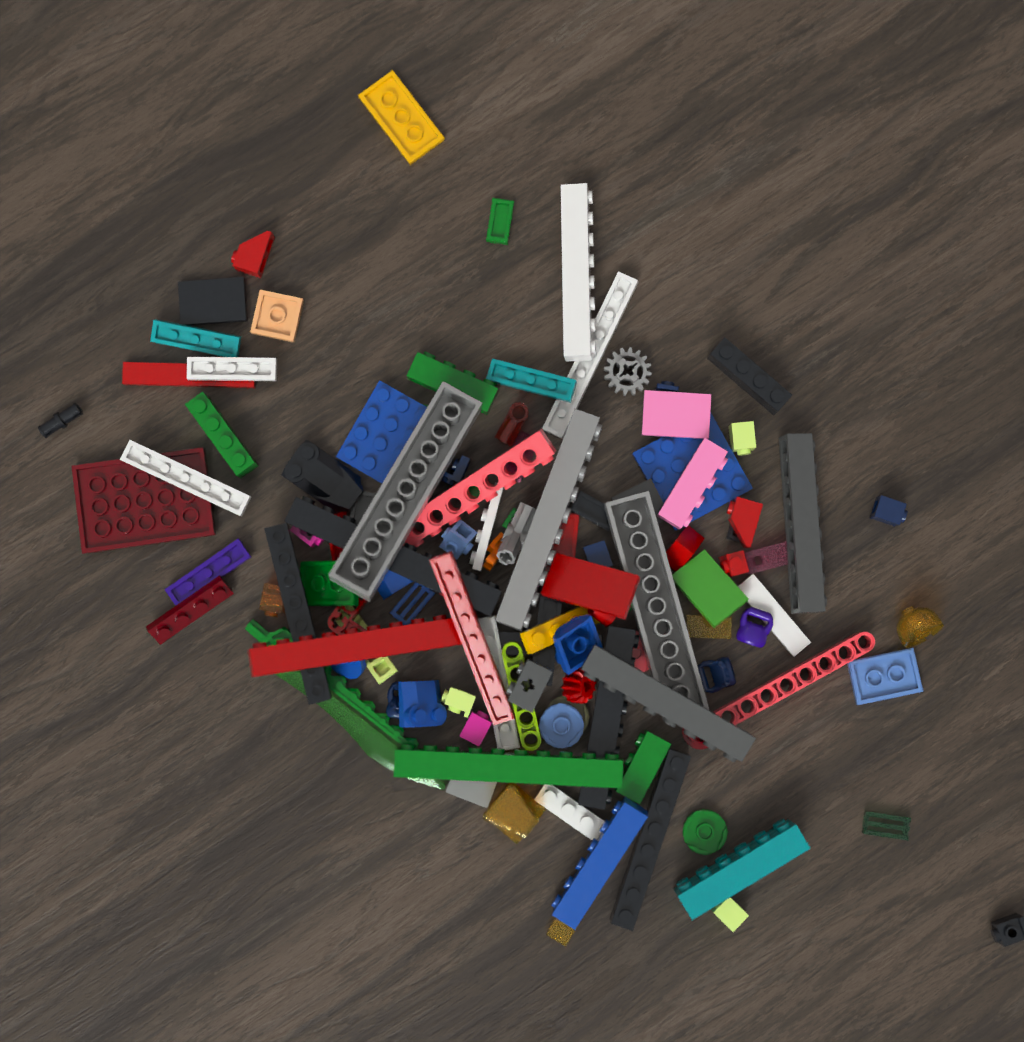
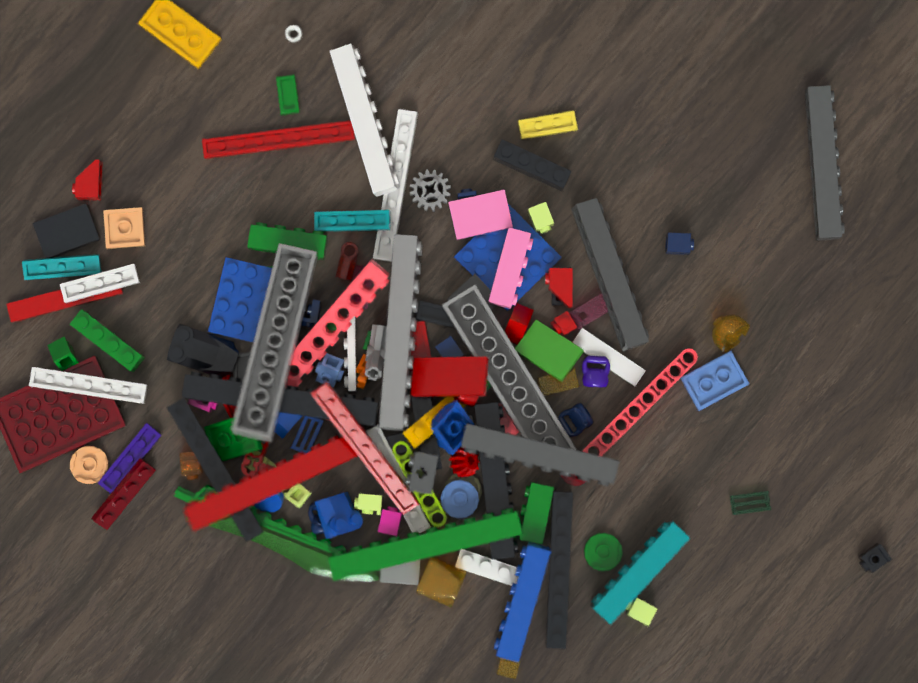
camera: 20 degrees left, 0 degrees up
(162, 566) = (89, 464): none -> light nougat tile
(168, 435) = (62, 354): none -> green brick
(475, 267) = (278, 139): none -> red tile
(526, 149) = (290, 28): none -> white axle
(778, 337) = (547, 125): none -> light yellow tile

